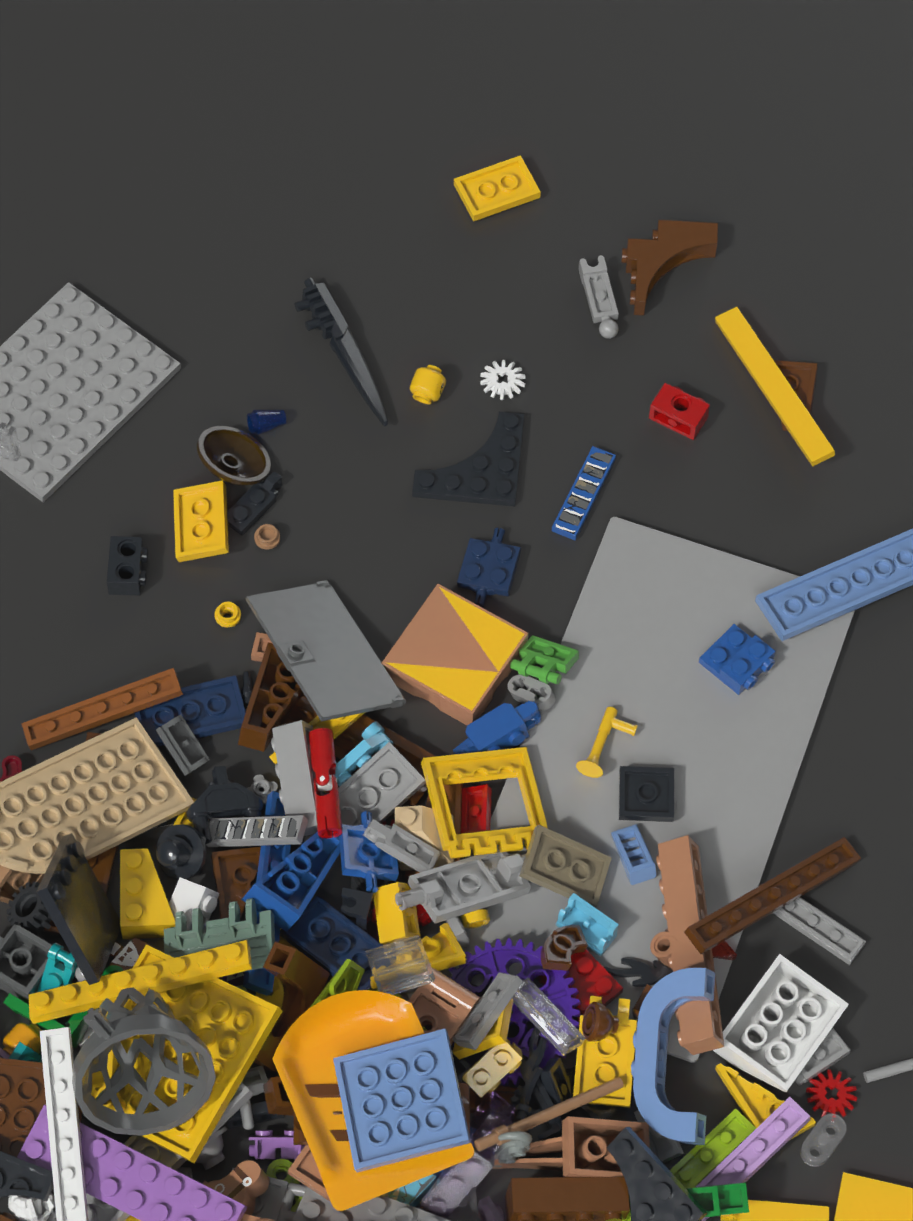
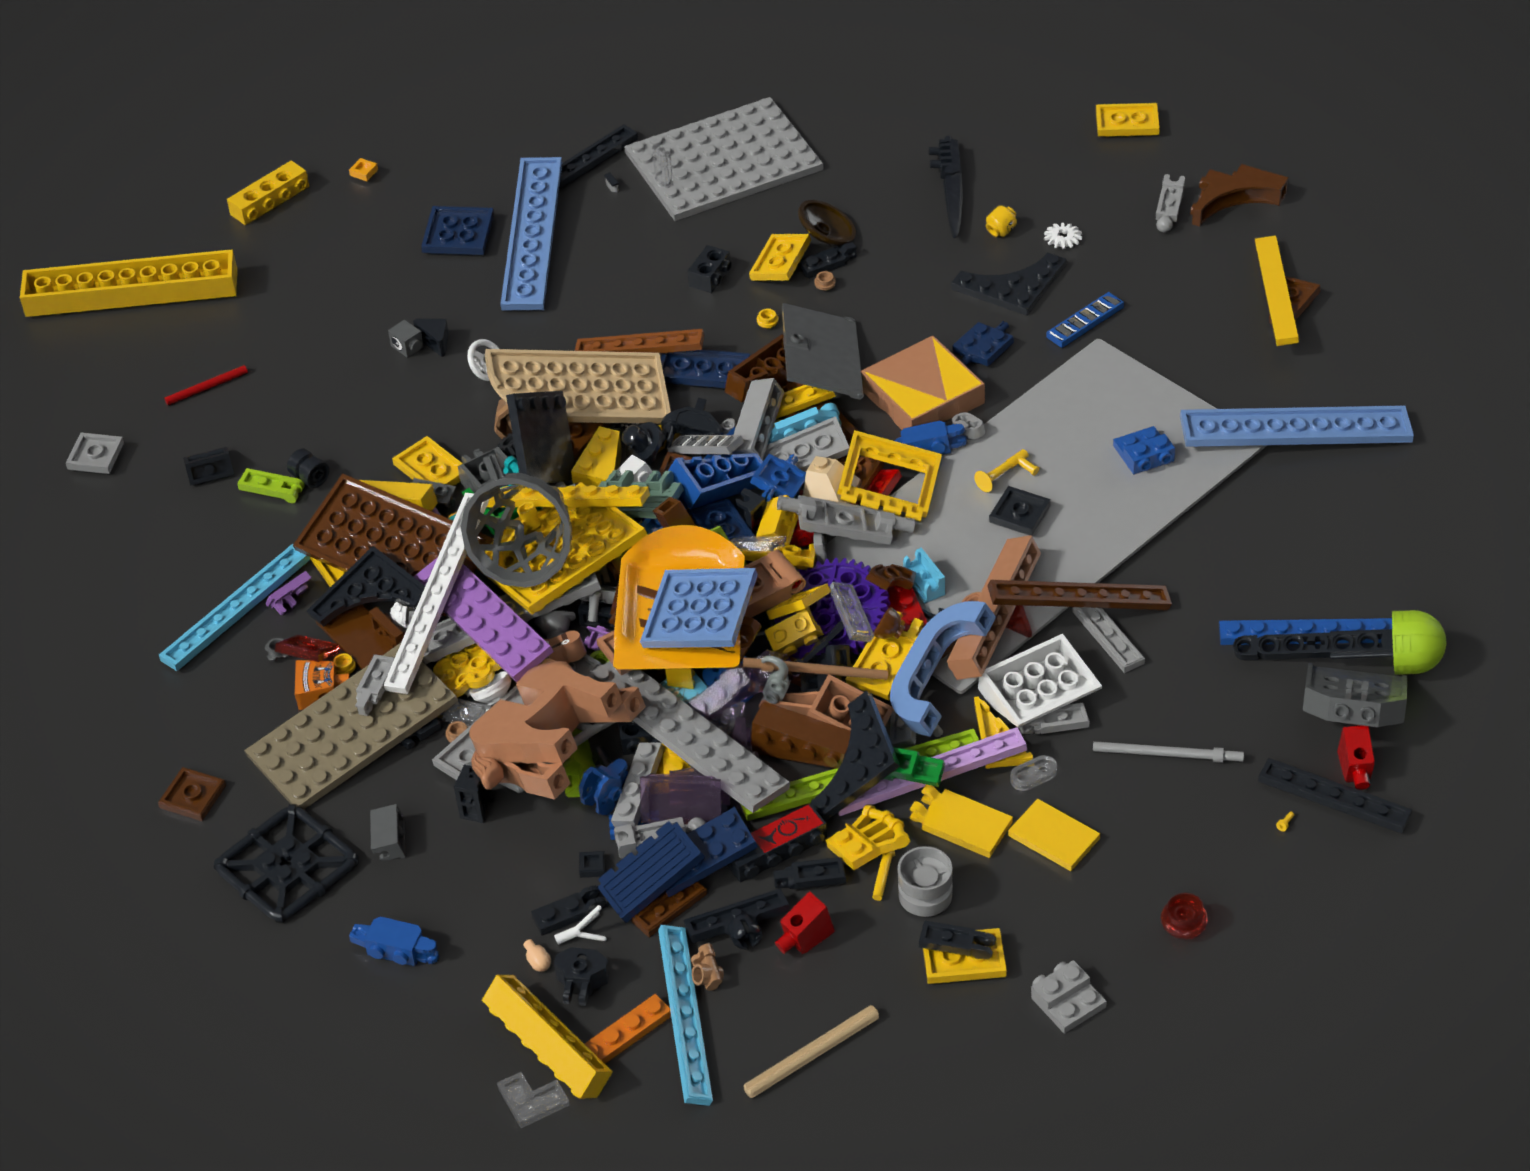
camera: 30 degrees right, 15 degrees down
(182, 744) = (683, 380): dark grey hinge -> none
(265, 420) = (865, 212): clear blue cone -> none
(324, 766) = (770, 423): red piece -> none
(402, 845) = (806, 478): light grey hinge -> none
(475, 919) = (839, 547): yellow tile -> none
(487, 1010) = (804, 588): light grey tile -> none
(547, 654) = (988, 405): bright green plate -> none
(565, 865) = (923, 527): dark tan plate -> none
(638, 870) = (987, 546): medium blue slope -> none
(686, 422) = (1190, 287): red brick -> none
(831, 1105) = (1069, 748): red gear -> none

